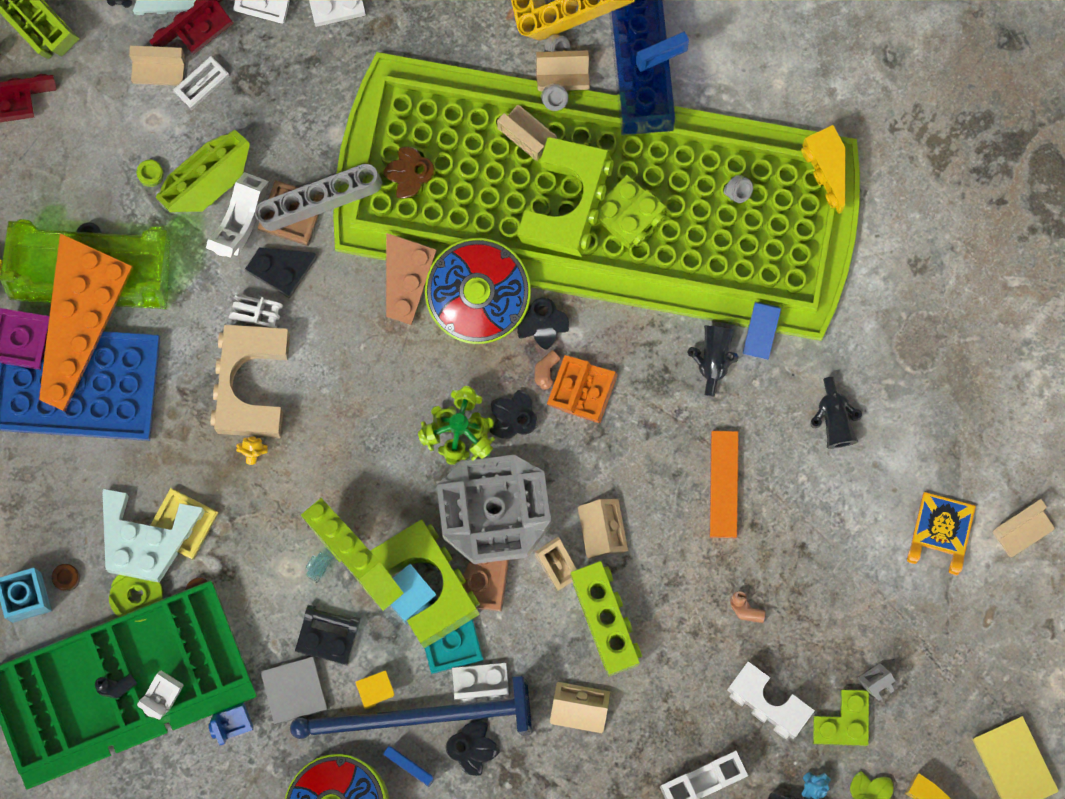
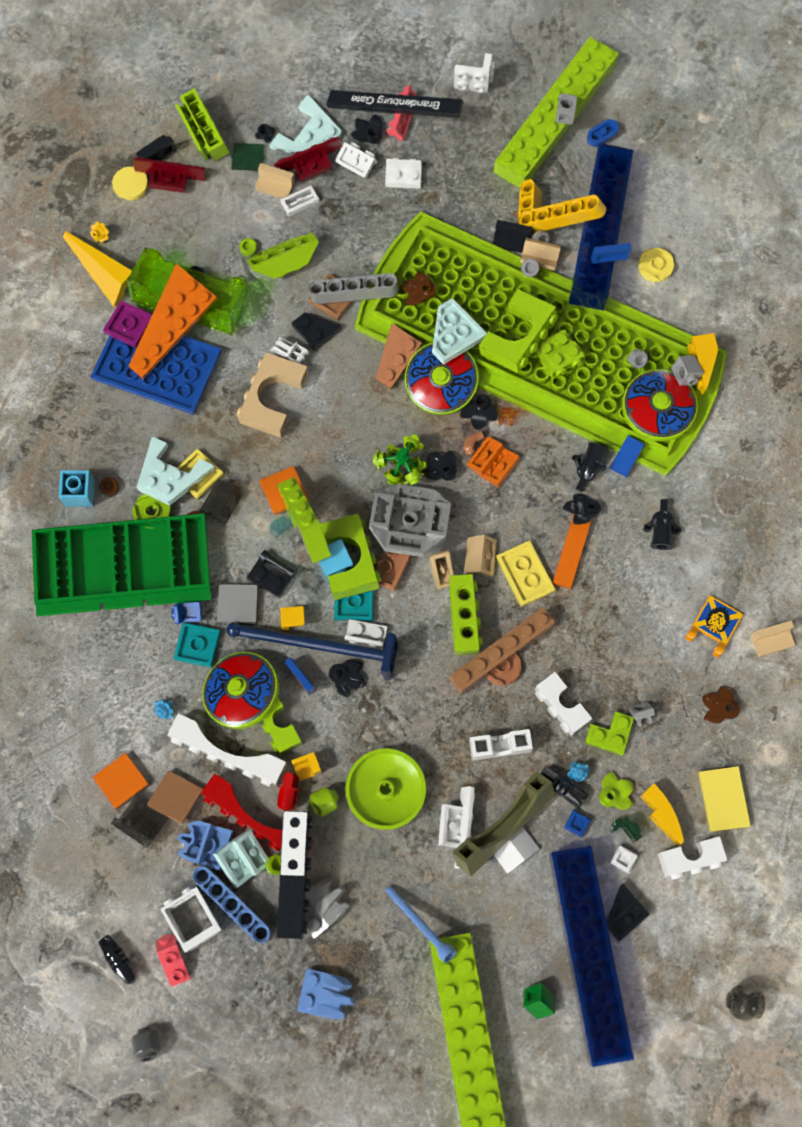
camera: 15 degrees right, 5 degrees down
(106, 36) = (247, 156): none -> clear green piece
(113, 688) = (115, 564): black arm -> none
(160, 695) = (145, 577): white bracket -> none
(227, 552) = (222, 500): none -> clear smoke bracket
(240, 216) = (297, 290): white arch -> none
(252, 448) = (259, 437): yellow plant -> none
(256, 763) = (197, 645): none -> teal tile
(292, 505) = (271, 490): none -> orange slope
(477, 223) = (454, 332): none -> light aqua plate
(514, 54) = (511, 236): none -> black panel
(525, 131) = (502, 283): tan panel -> none
(579, 315) = (505, 412): none -> clear orange tile
(580, 707) = (429, 671): tan panel -> none
(669, 652) = (502, 649): none -> medium nougat arch
(670, 534) = (525, 573): none -> light yellow tile
(674, 671) = (506, 672): none -> nougat tile
(717, 422) = (582, 508): none -> black plate
(726, 37) = (656, 264): none -> light yellow tile
(743, 609) = (561, 637): nougat arm -> none
(786, 246) = (659, 406): none -> dish
(811, 189) = (687, 370): none -> light grey brick
(974, 639) = (717, 706): none -> reddish brown plate

